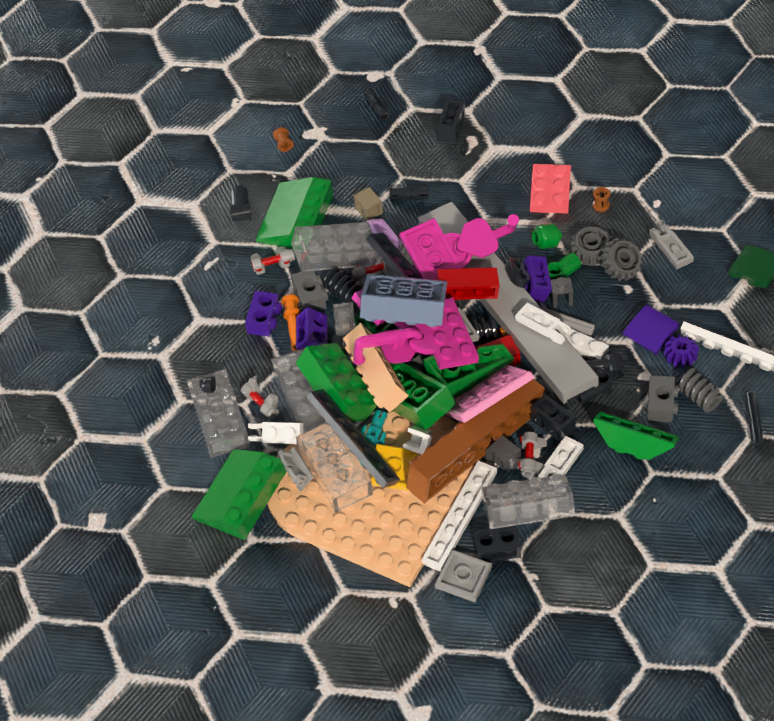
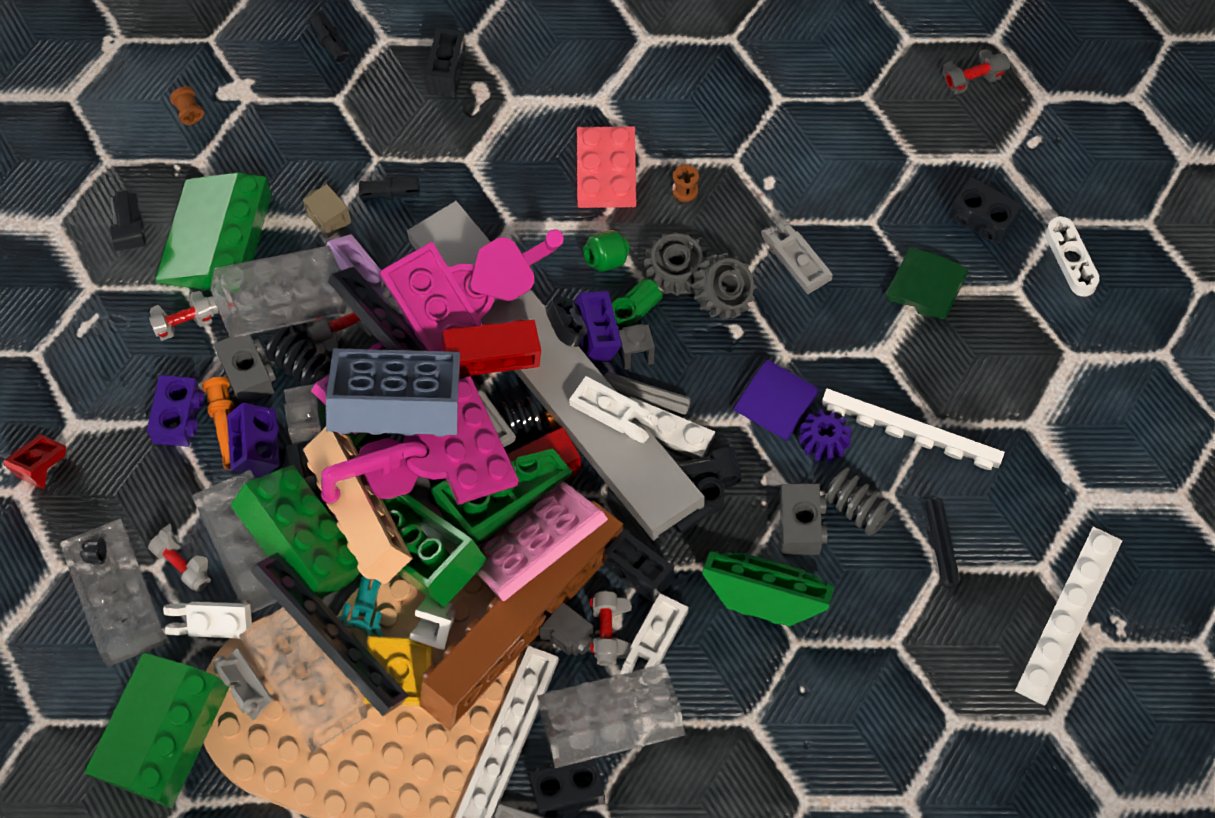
camera: 10 degrees left, 10 degrees up
(172, 336) = (34, 459): none -> red slope

